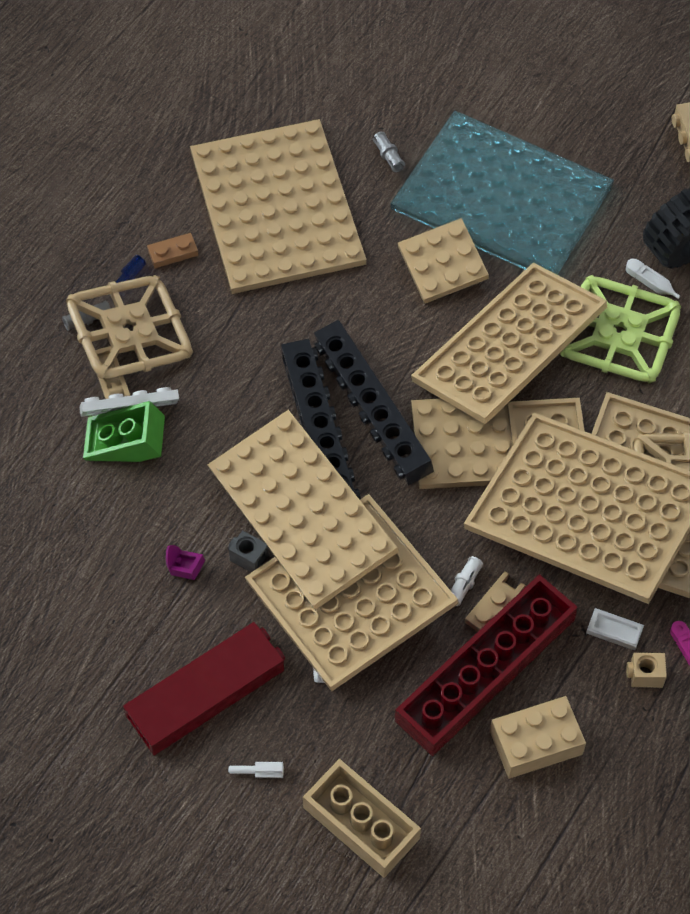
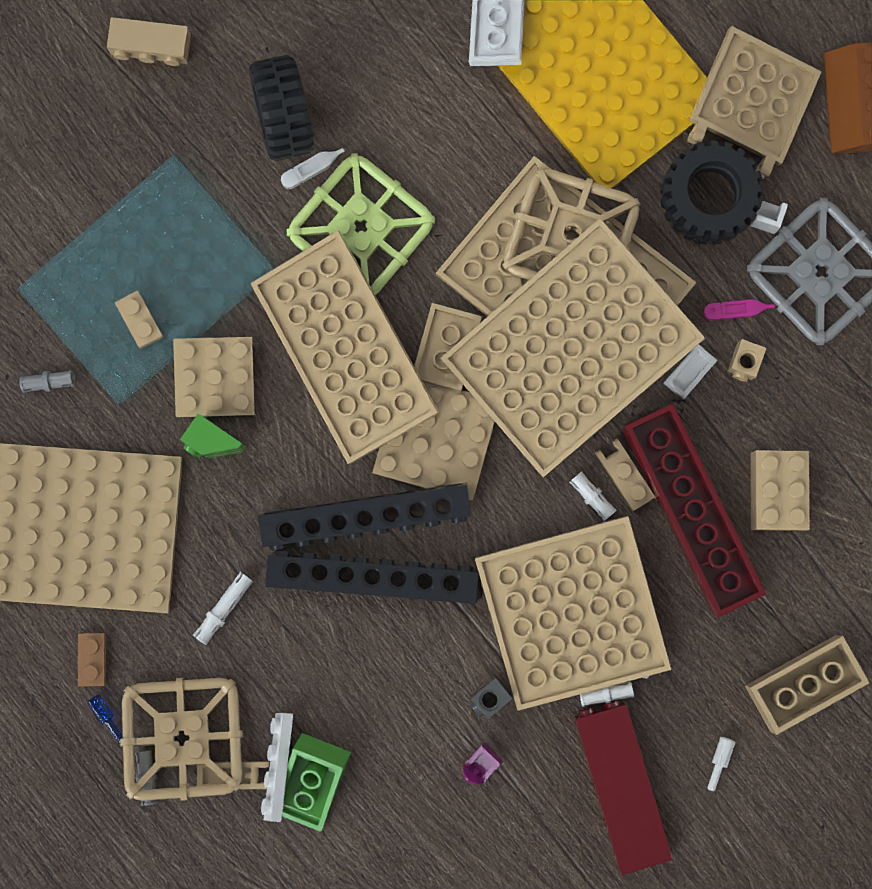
camera: 70 degrees left, 25 degrees up
(242, 324) = (223, 608): none -> white pin
(288, 648) = (607, 694): none -> white pin
(302, 509) = (467, 631): tan plate -> none
(388, 267) = (209, 440): none -> bright green slope
(466, 193) = (139, 319): none -> tan plate

